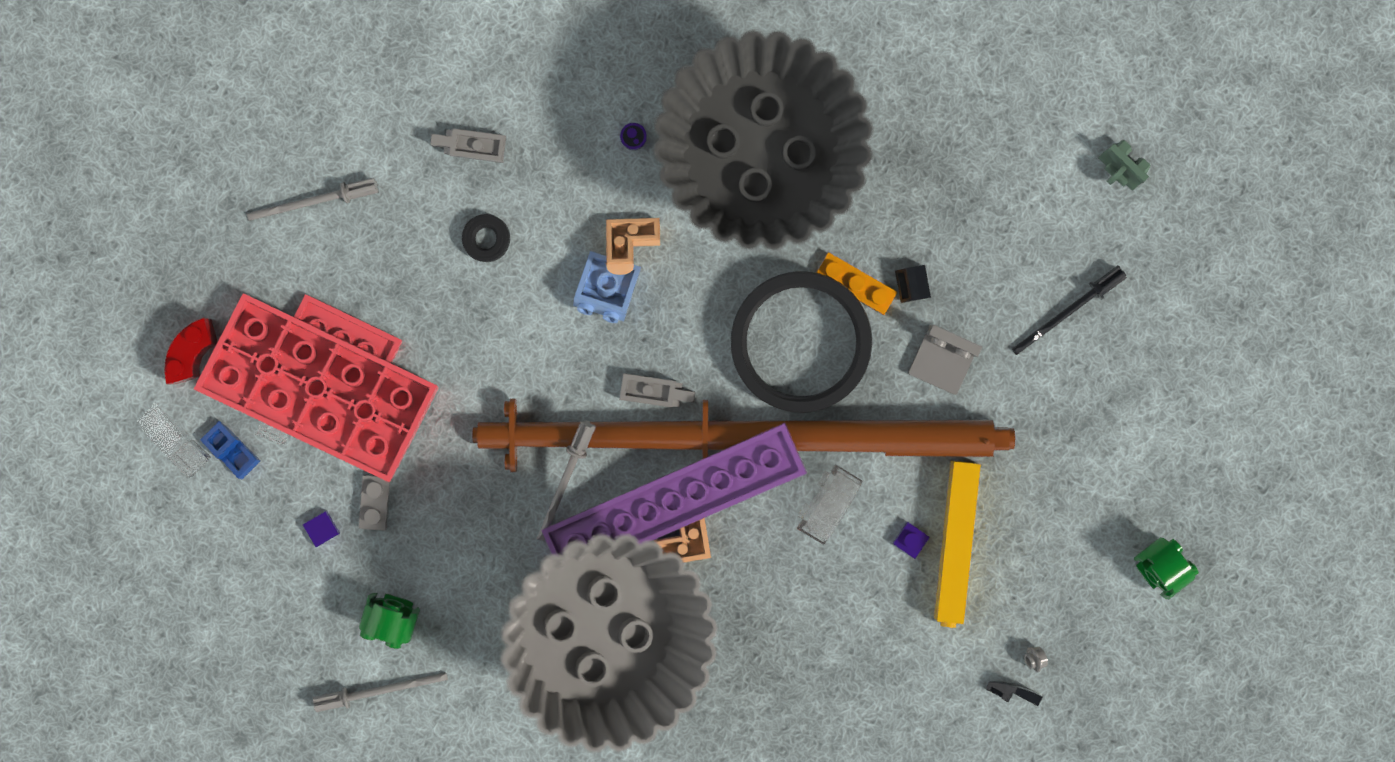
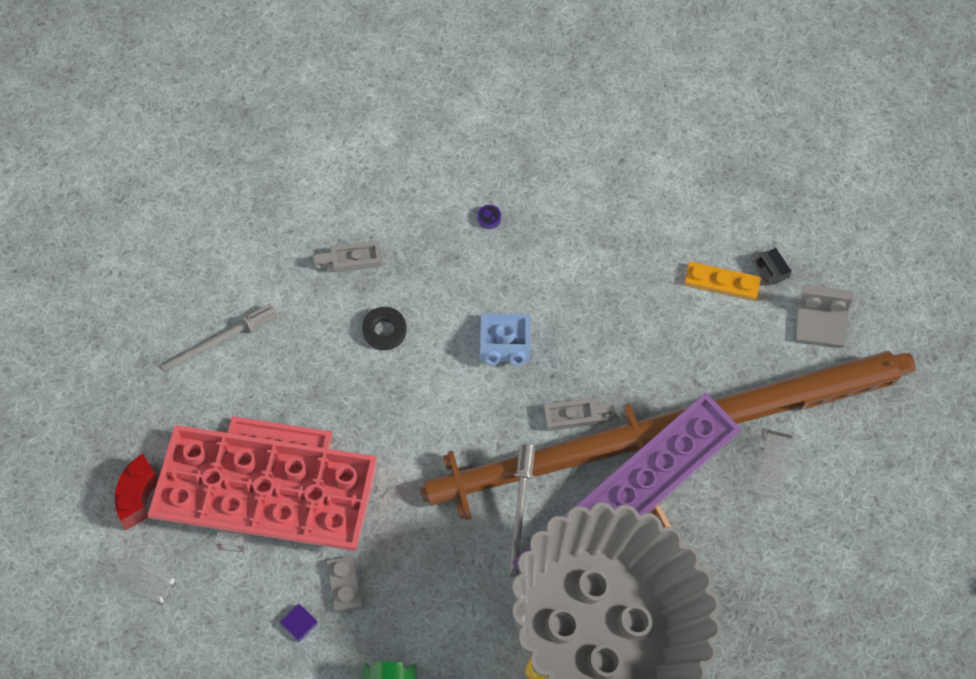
camera: 15 degrees left, 25 degrees down
(230, 450) = (193, 574): blue slope -> none
(623, 236) = (510, 292): light nougat brick -> none
(763, 140) = (606, 164): dark grey piece -> none
(818, 401) = (706, 284): black tyre -> none
(911, 540) = (855, 479): dark purple plate -> none
(957, 543) = (898, 468): yellow brick -> none
(1098, 289) = (929, 230): black piece -> none
(1122, 167) = (909, 133): sand green hips -> none

